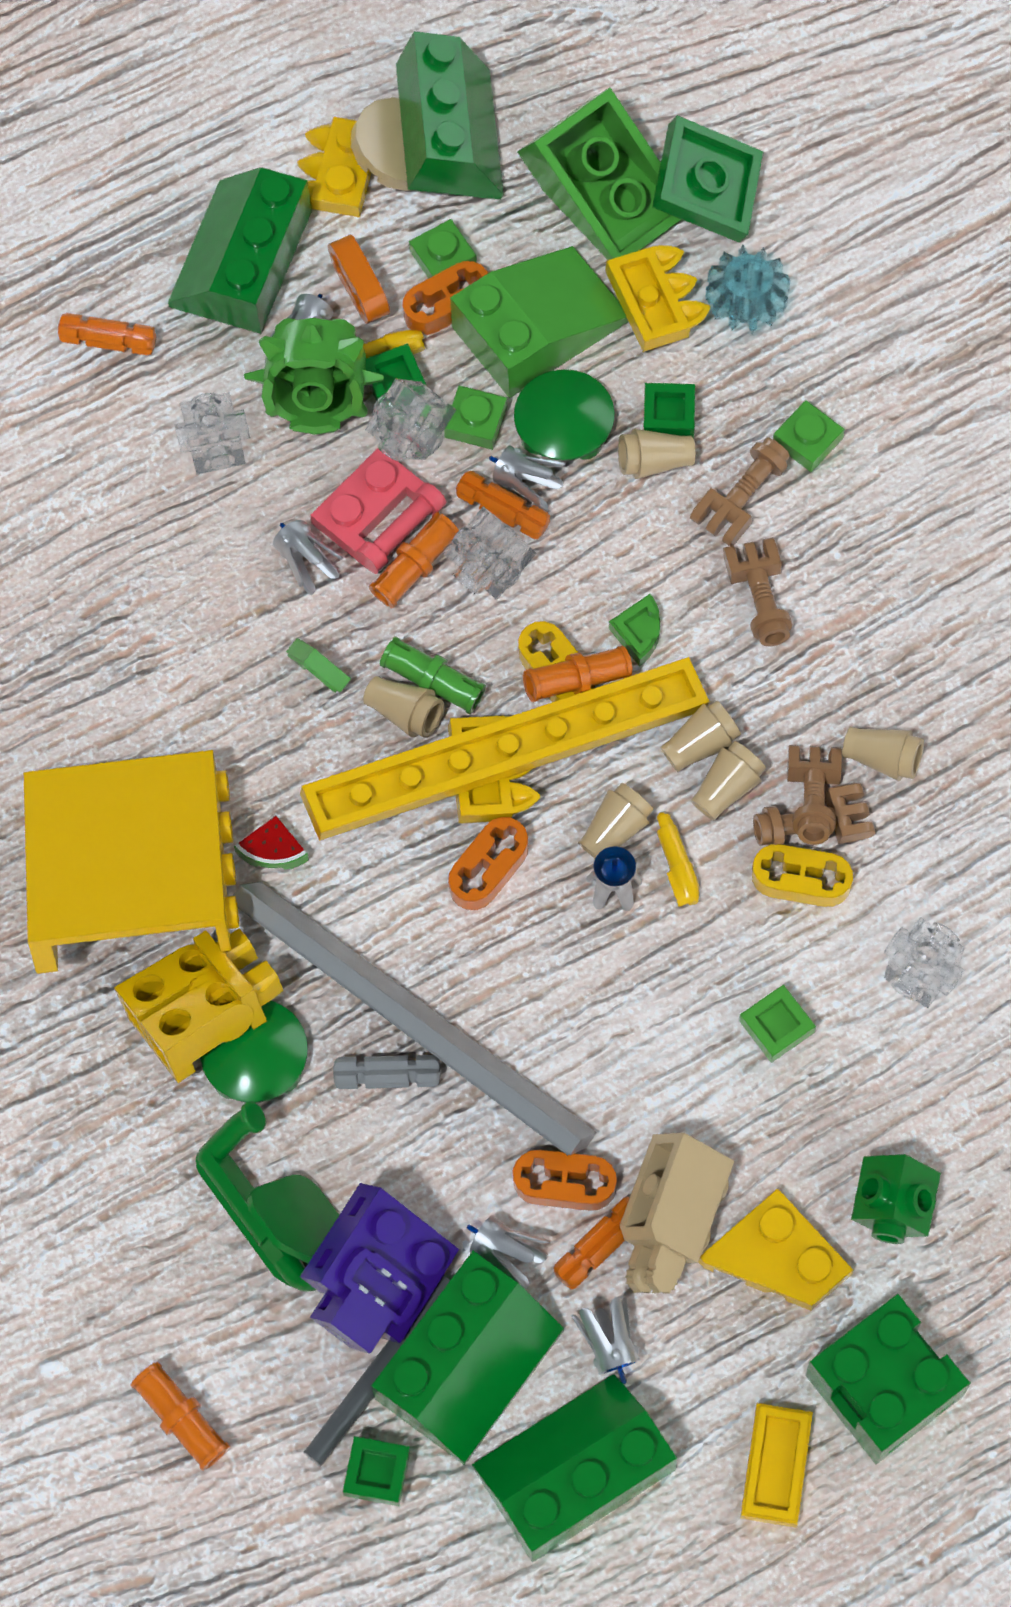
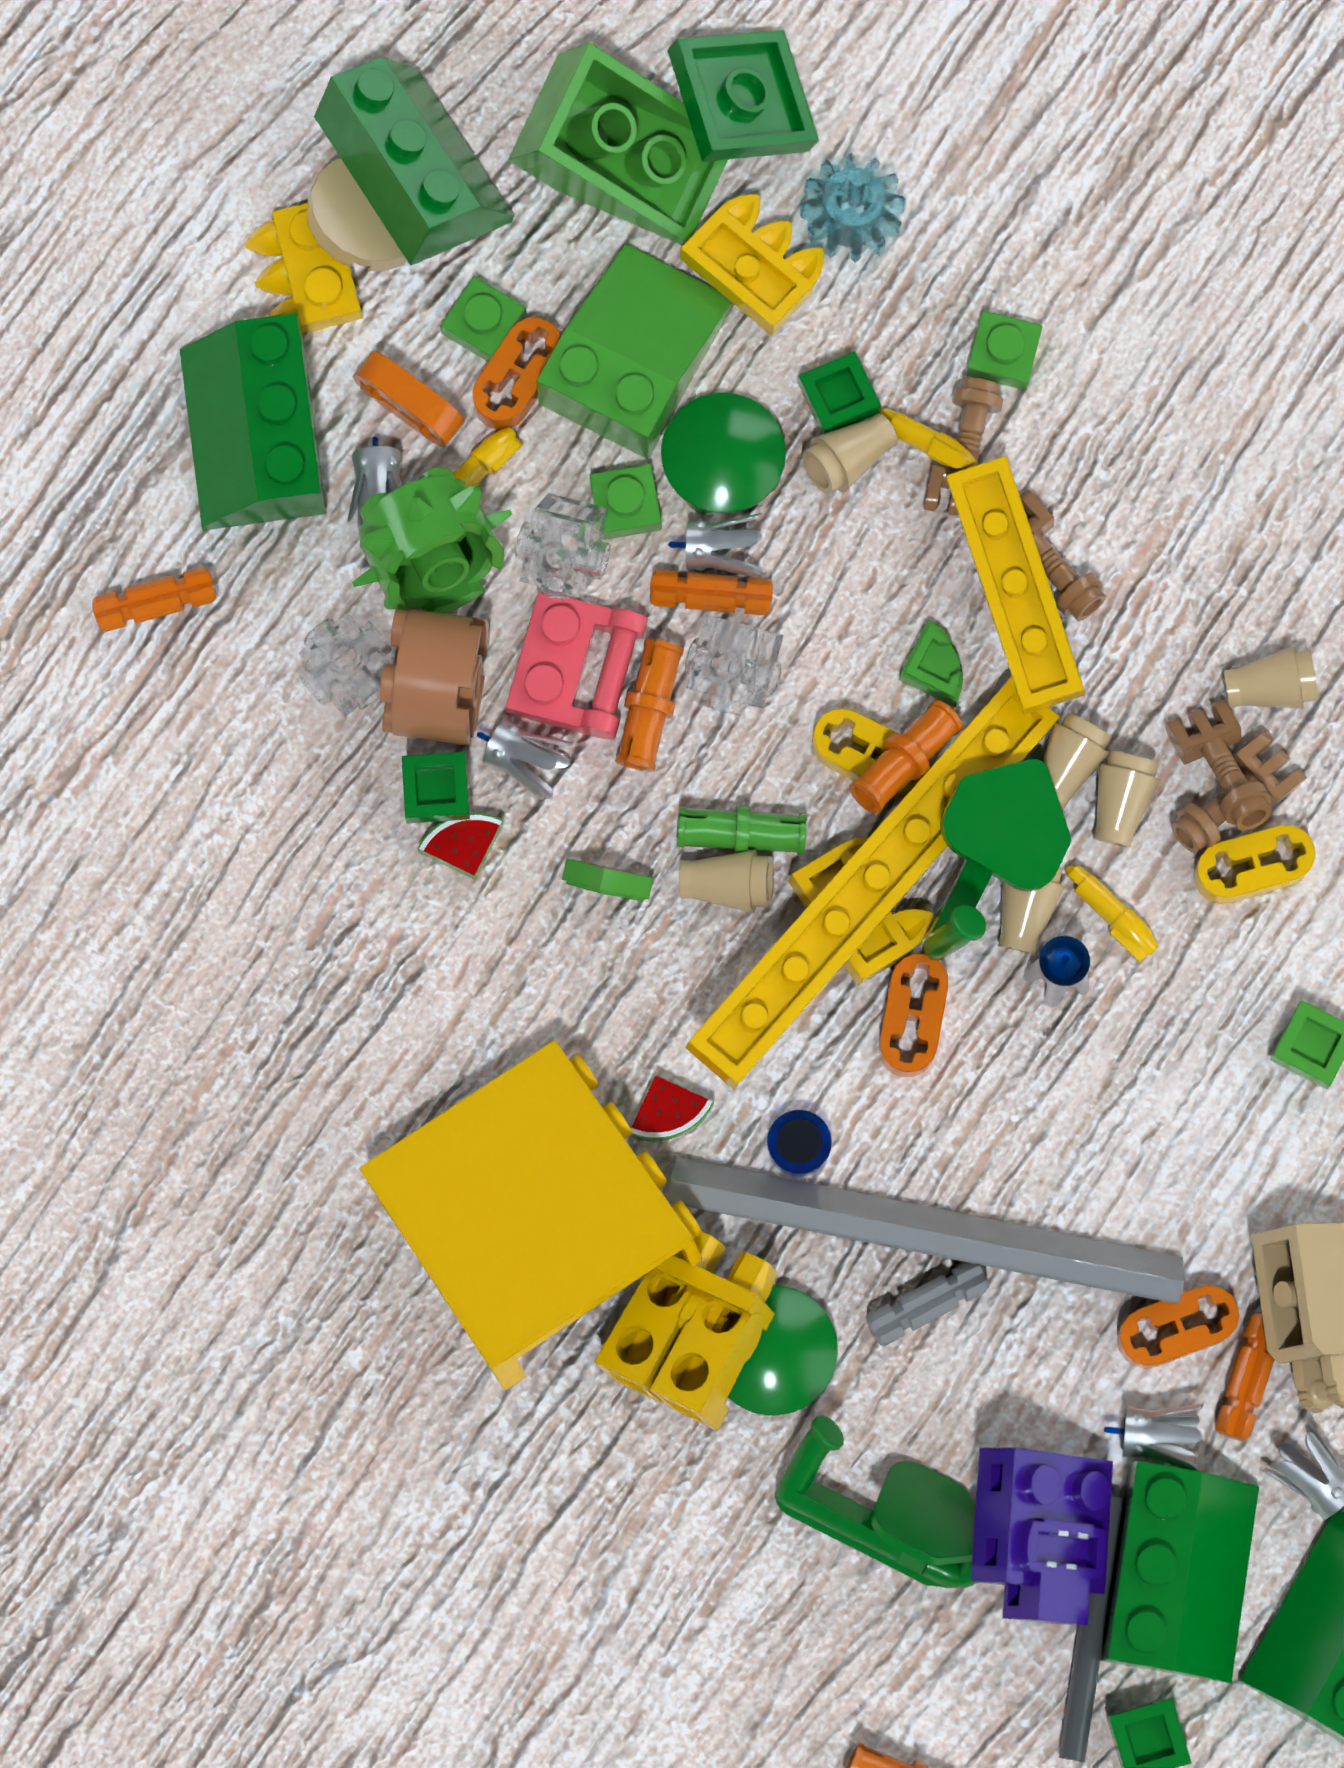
camera: 30 degrees left, 10 degrees up
(228, 542) = (435, 787): none -> green tile
(230, 593) = (462, 843): none -> red tile
(268, 464) = (435, 676): none -> nougat brick
(355, 914) = (799, 1143): none -> tile
(393, 364) = (514, 489): green plate -> none
(622, 754) = (1003, 827): none -> green piece
(720, 475) = (936, 445): none -> yellow piece
(723, 593) = (1015, 585): none -> yellow plate

